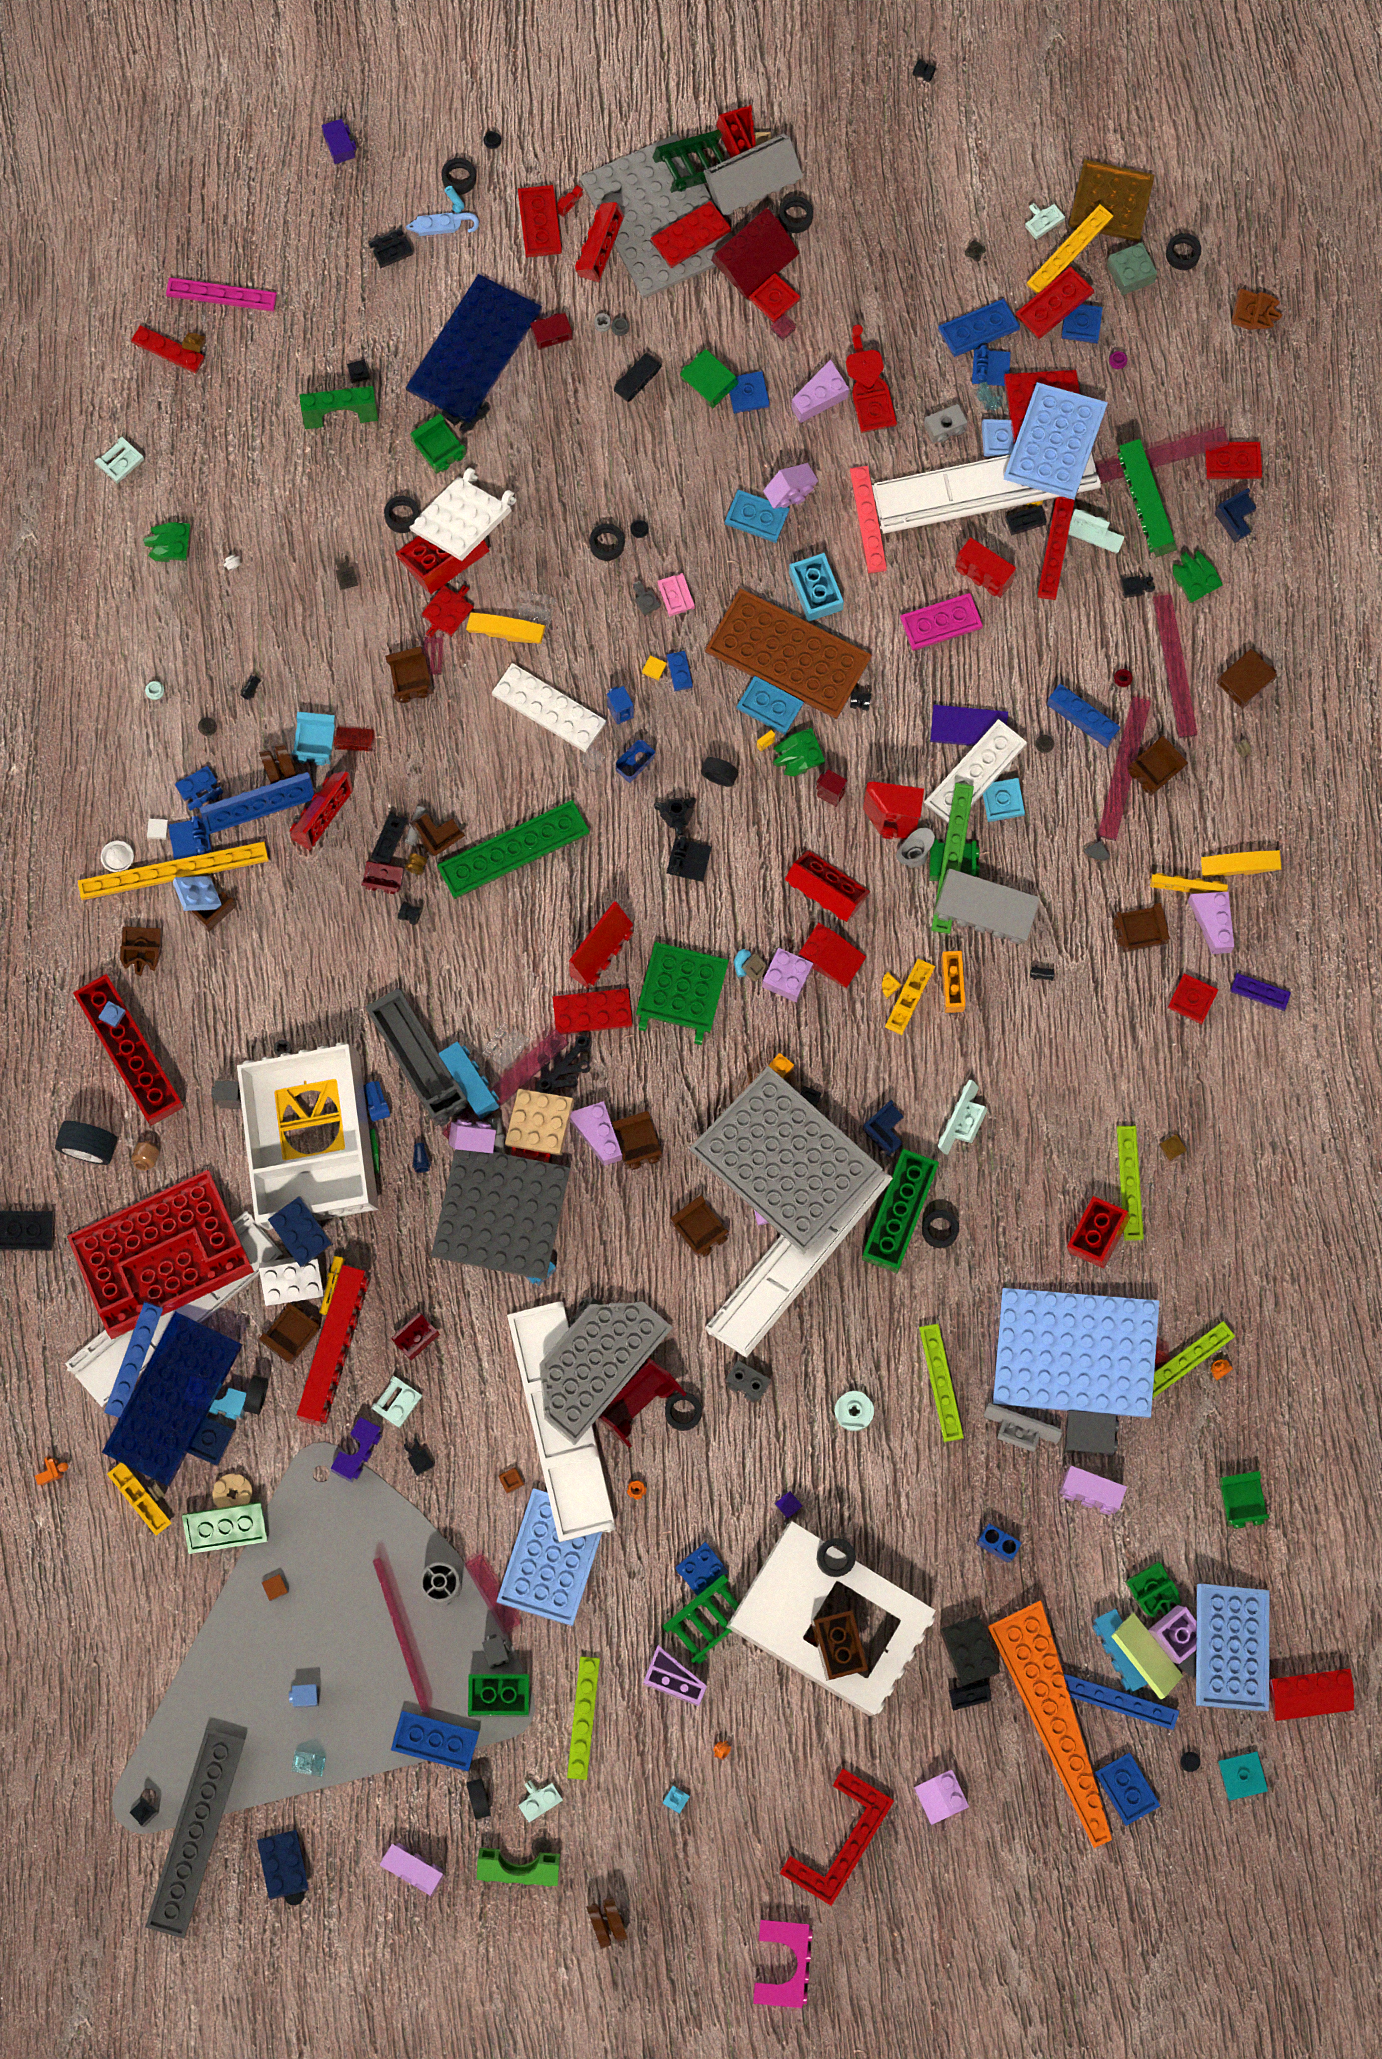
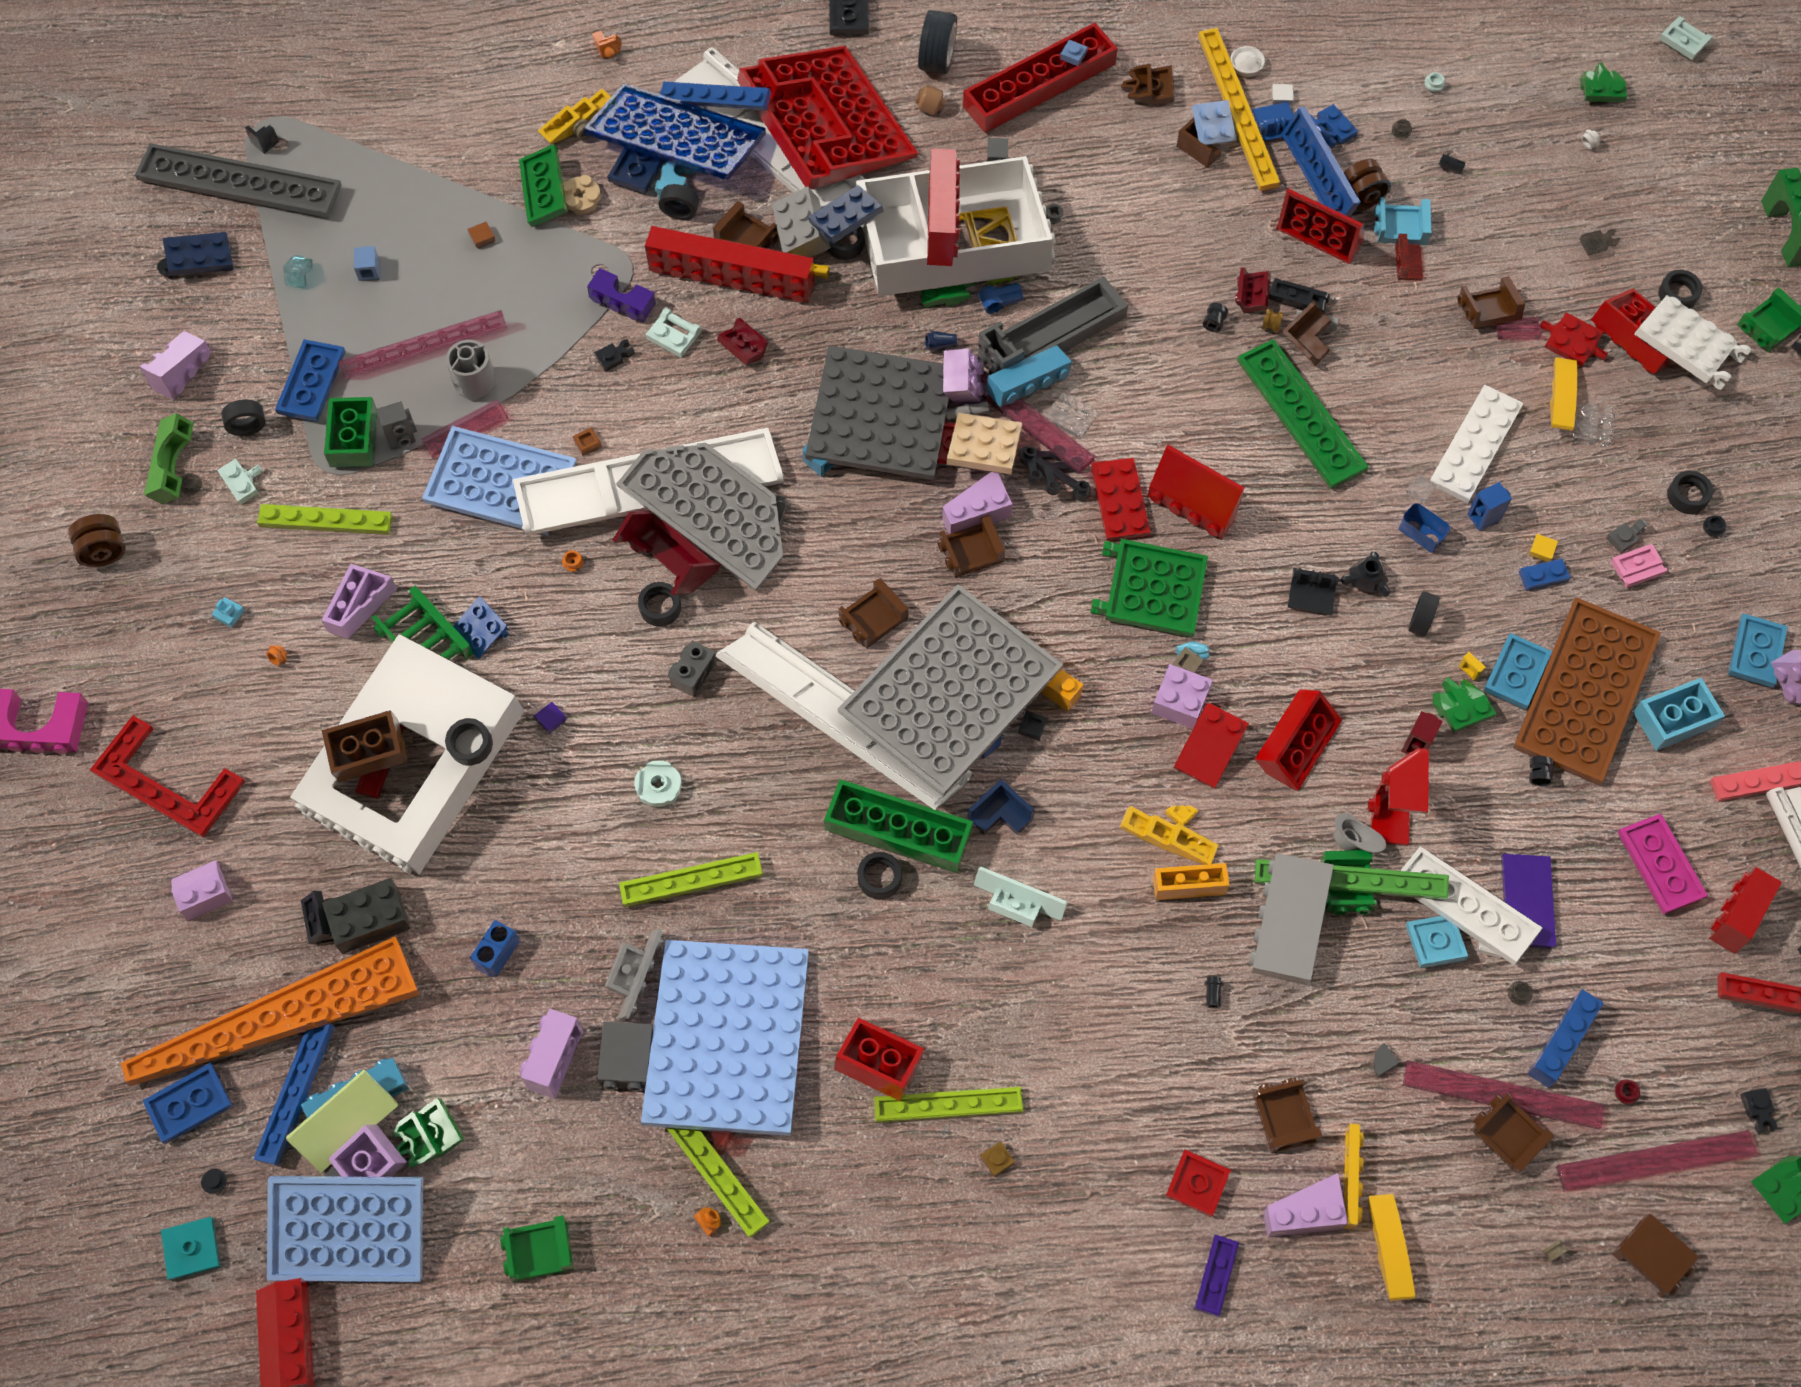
camera: 90 degrees right, 10 degrees down
(313, 1138) = (943, 207): none -> brick

